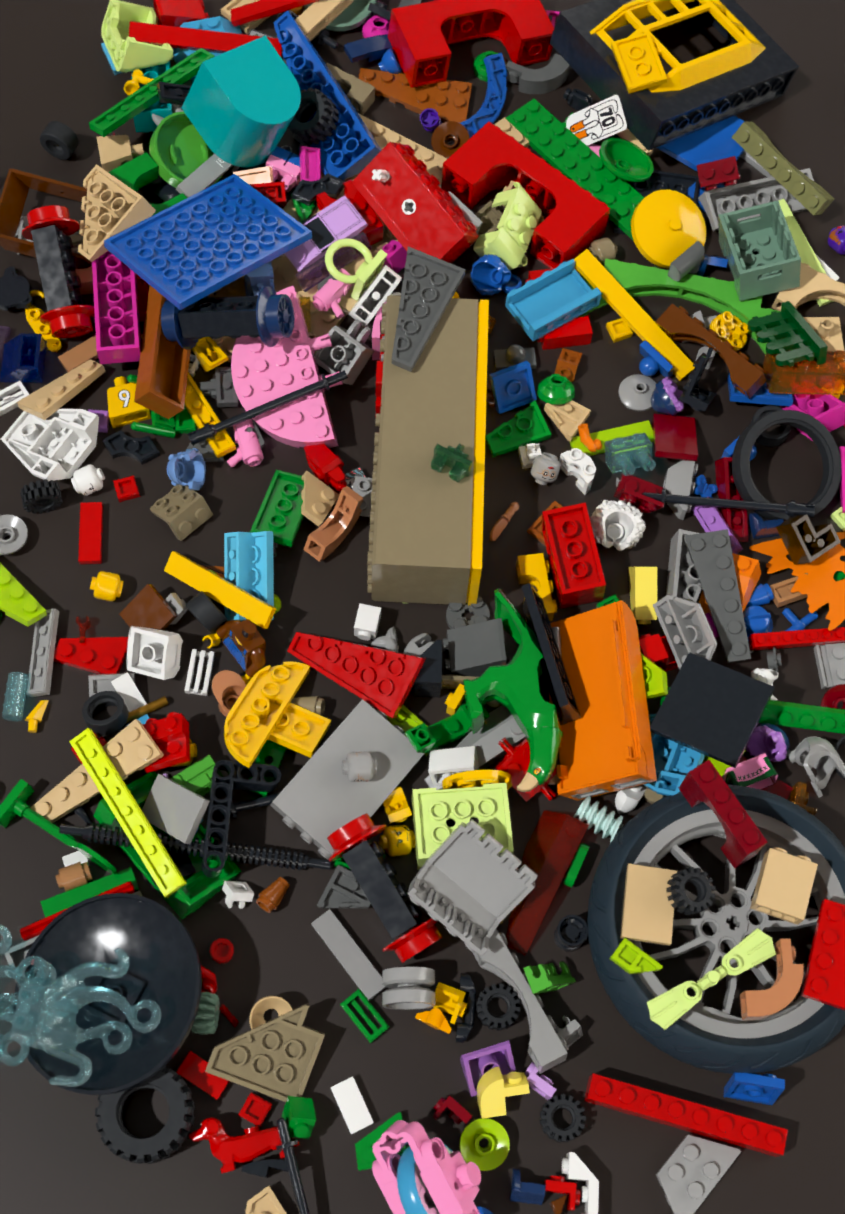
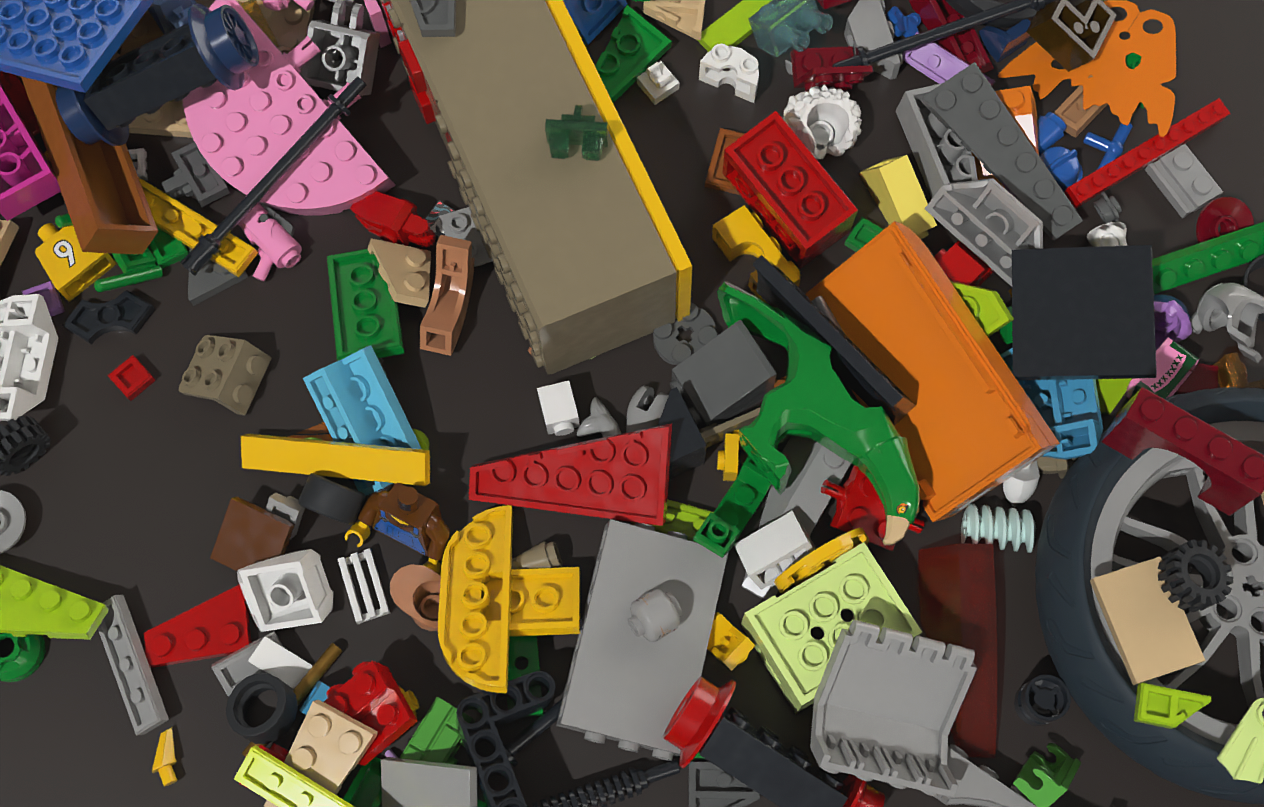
camera: 20 degrees left, 5 degrees up
(15, 696) = (121, 746): clear light blue axle -> none
(83, 627) = (169, 603): clear red hand -> none
(88, 480) = (71, 390): white head -> none
(90, 533) = (112, 463): red tile -> none
(106, 586) = (173, 528): yellow head -> none
(187, 469) = (204, 312): medium blue helmet -> none
(209, 354) = (154, 138): yellow slope -> none
(397, 840) = (753, 688): yellow head -> none
(503, 521) = (668, 181): nougat piece -> none
(545, 468) = (688, 90): light grey head -> none
(576, 865) = (1003, 604): green tile -> none
(586, 440) = (721, 27): orange arm -> none

